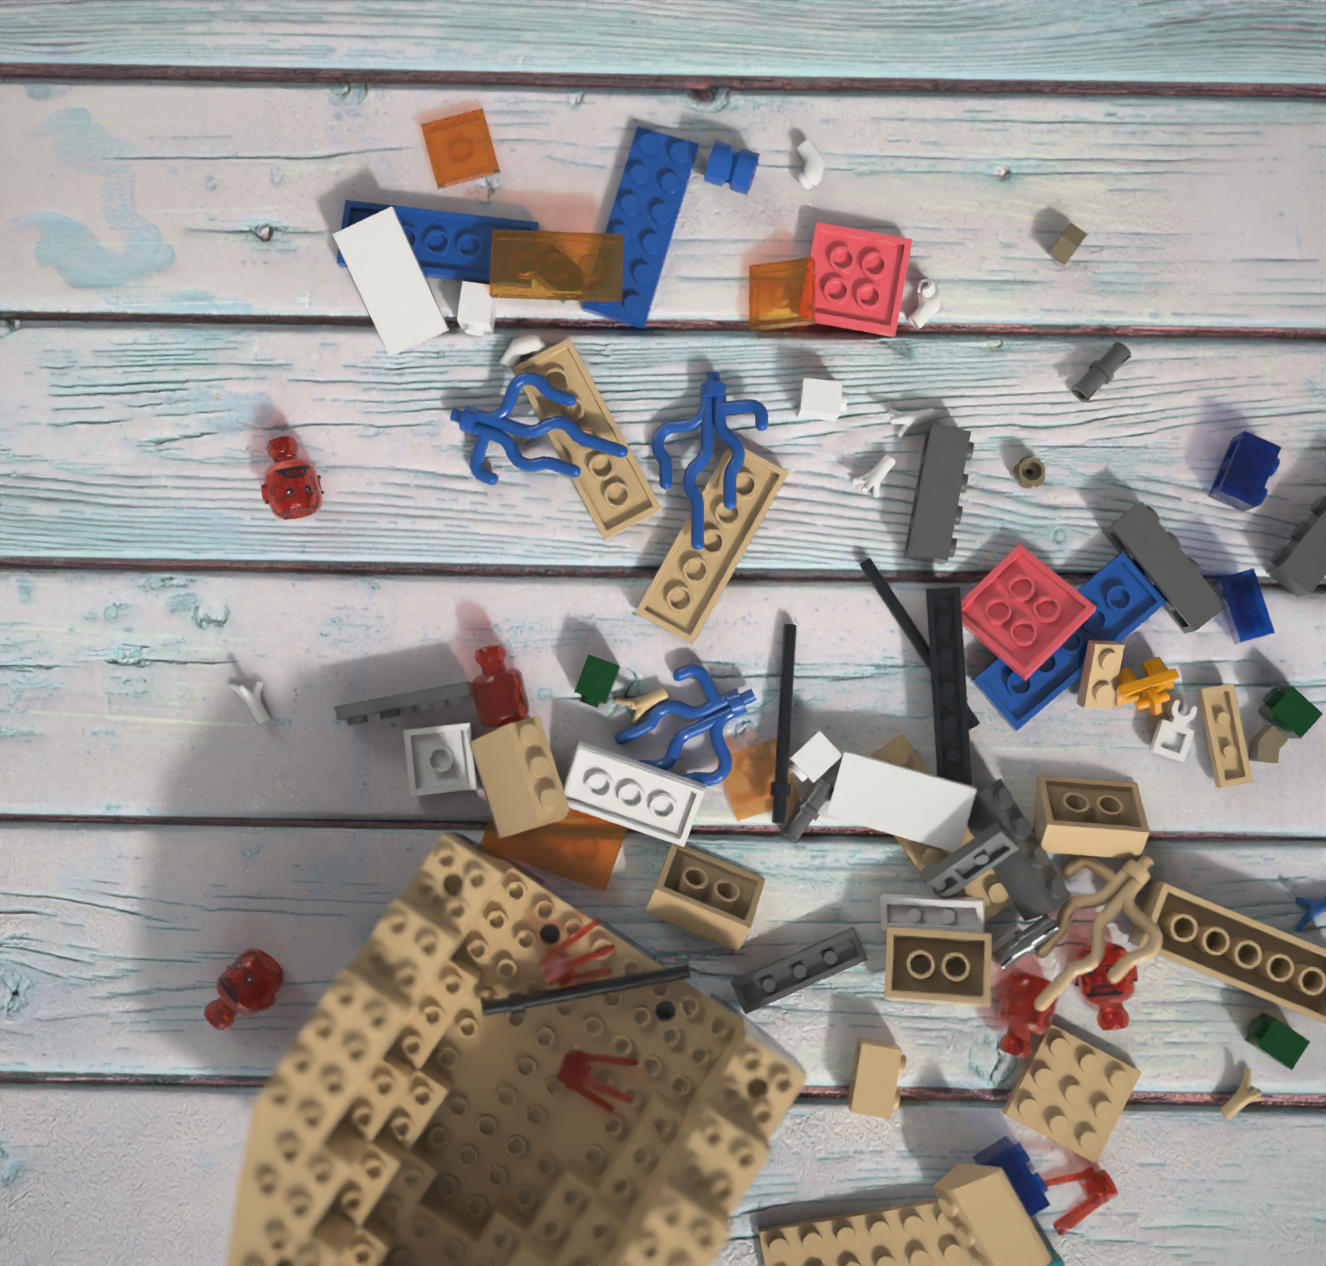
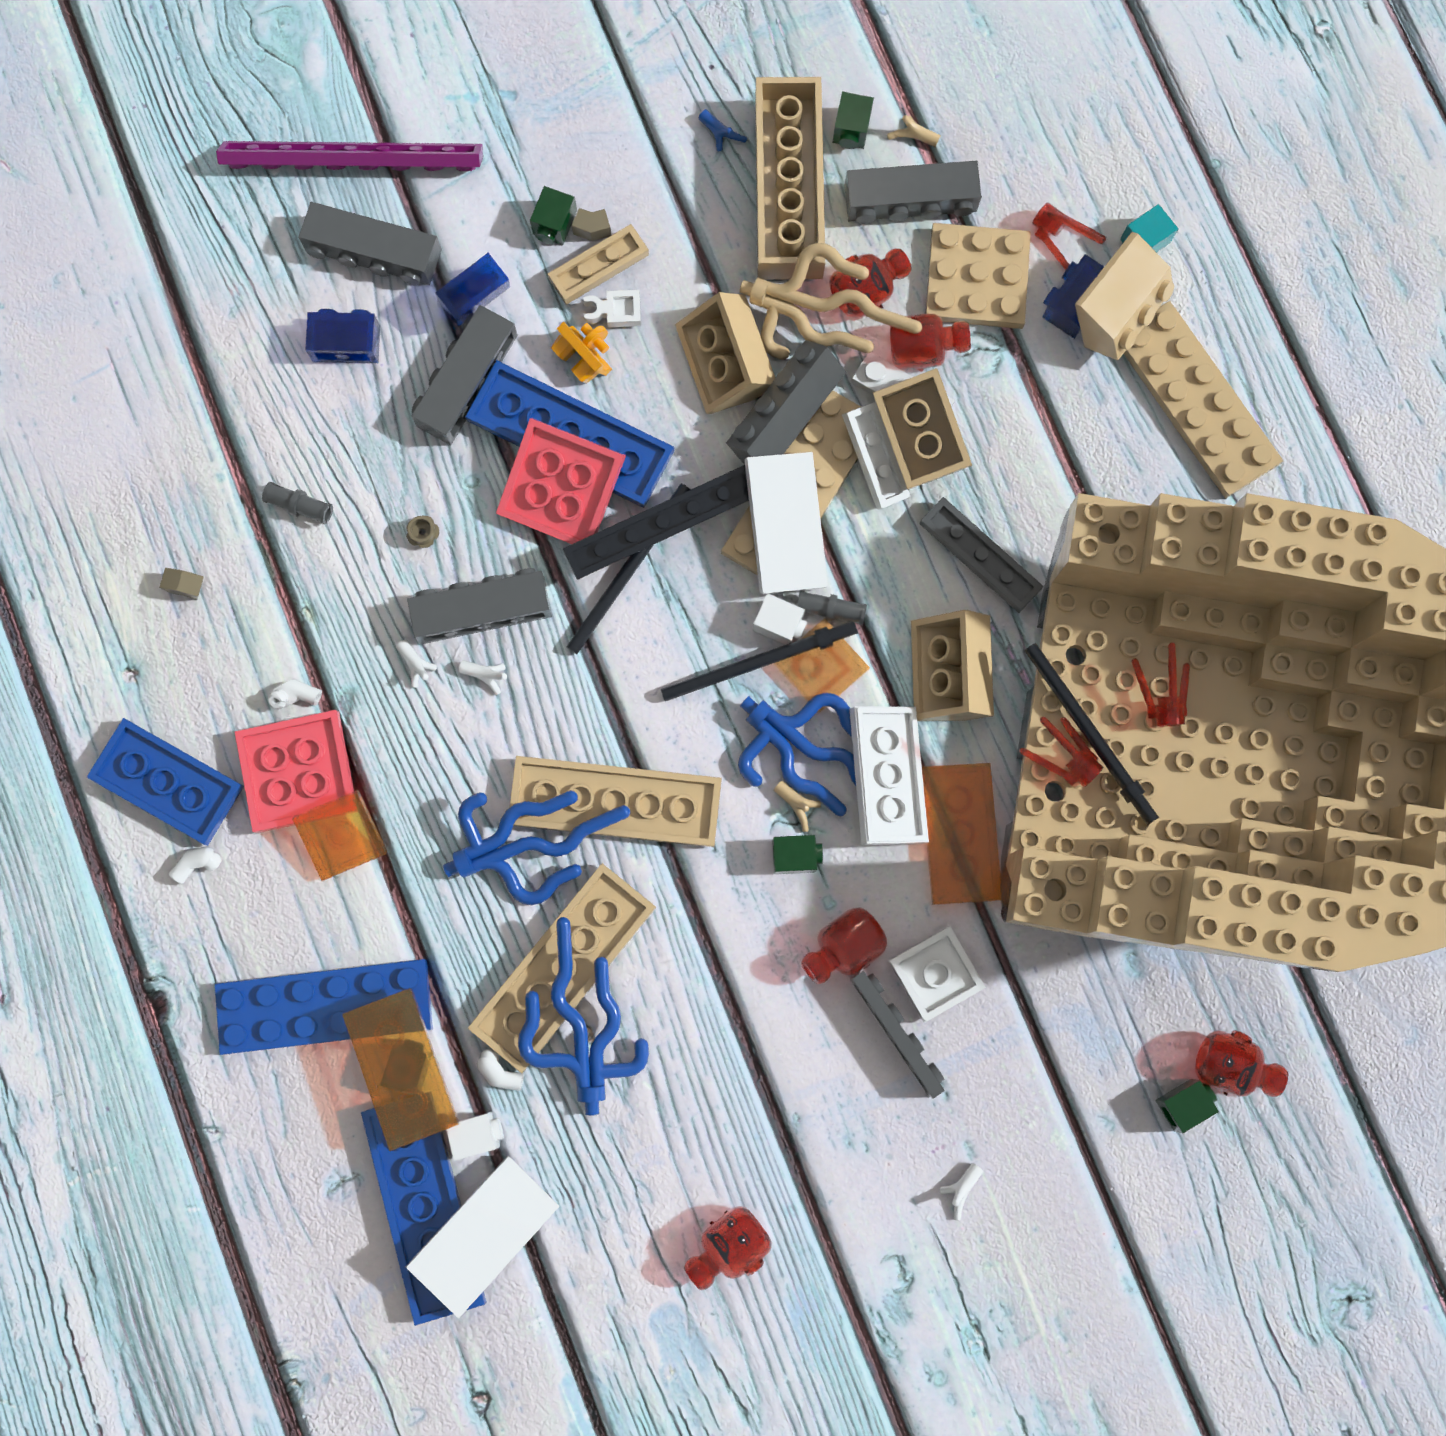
camera: 115 degrees left, 5 degrees down
(232, 928) = (1188, 1105): none -> dark green brick
(460, 148) = (311, 1230): clear orange tile -> none
(519, 777) = (921, 886): tan slope -> none
(731, 167) = (228, 939): blue wheel -> none
(821, 399) = (430, 754): white brick -> none
(875, 1078) = (1045, 448): tan brick -> none
(892, 165) = (165, 781): none -> blue plate
(969, 861) = (816, 438): dark grey plate -> none
(1025, 942) = (865, 363): dark grey pin -> none
(1100, 674) = (589, 392): tan plate -> none
(1180, 1066) = (912, 191): none -> dark grey brick

